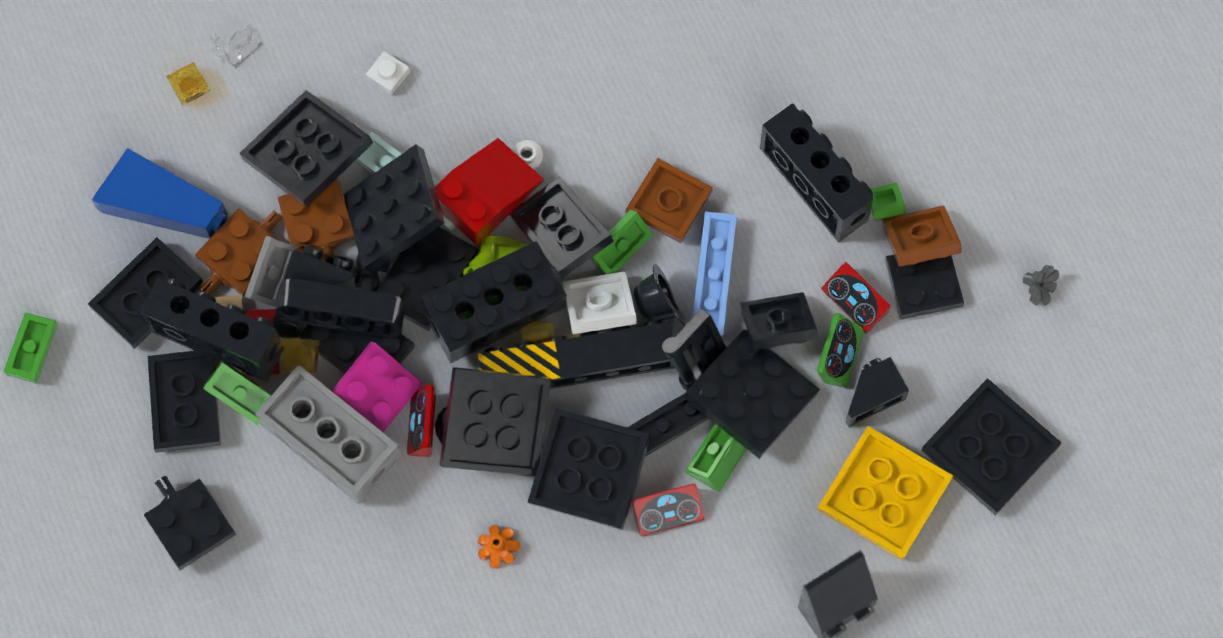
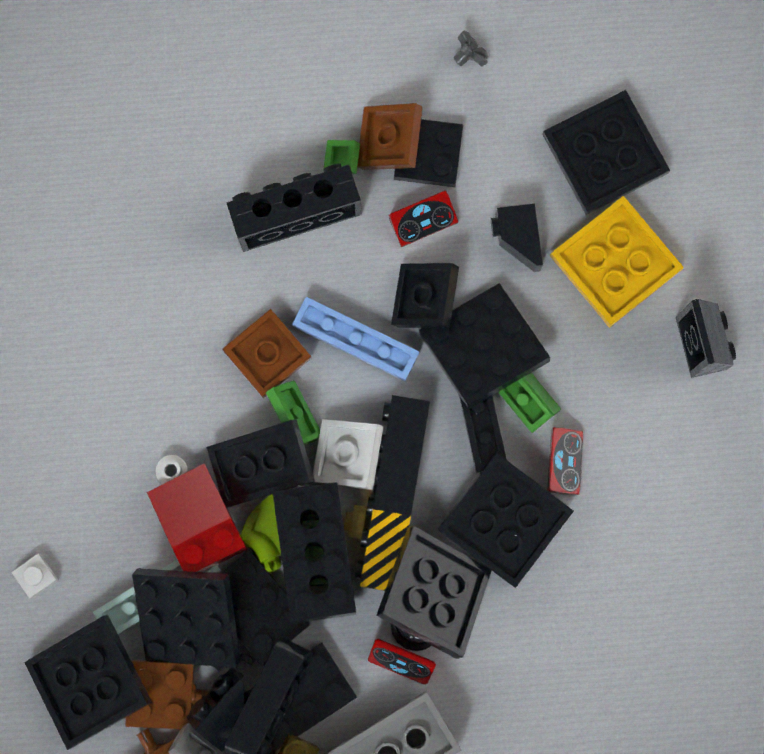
camera: 70 degrees left, 10 degrees up
(377, 386) = (356, 693): dark pink plate -> none
(502, 550) = (537, 627): orange plant -> none
(656, 298) = (363, 400): black piece -> none
(703, 343) = (424, 372): black plate -> none
(839, 351) = (471, 251): slope -> none

